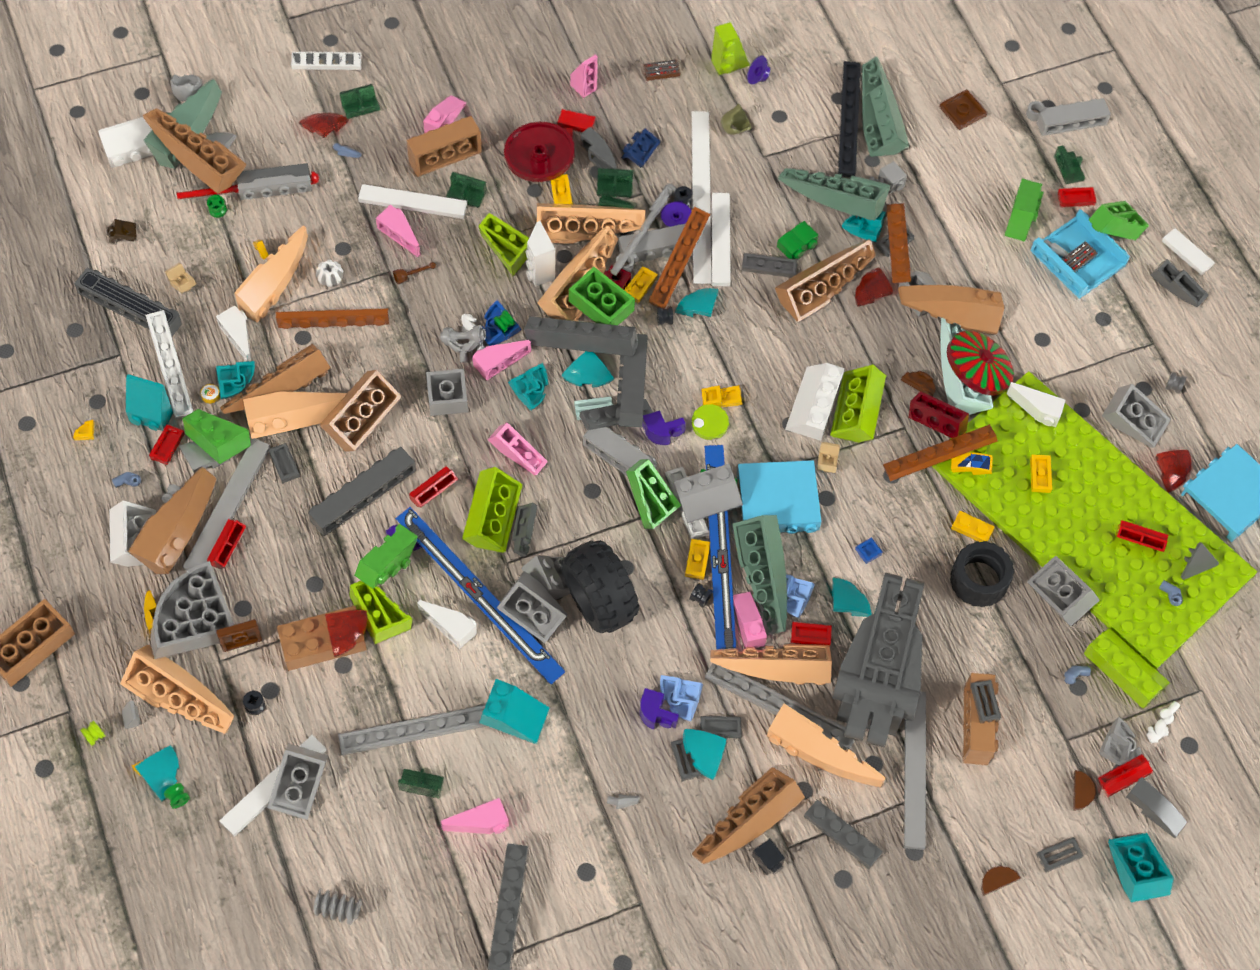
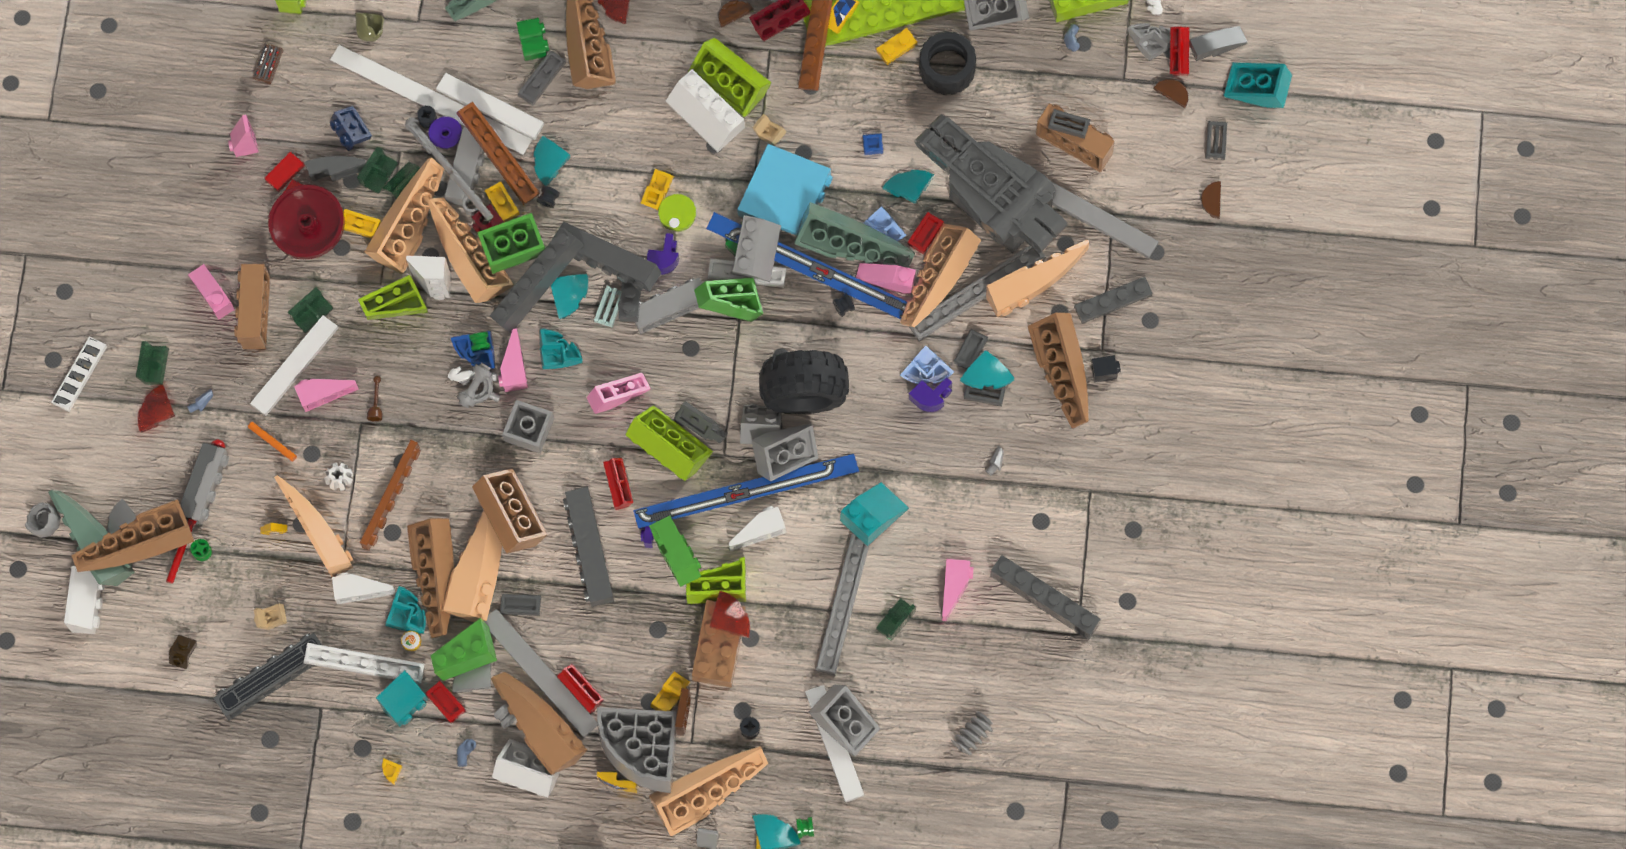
camera: 55 degrees left, 10 degrees up
(266, 620) = (670, 693): none -> yellow slope
(338, 214) = (272, 441): none -> orange bar
(697, 559) = (807, 291): yellow plate -> none

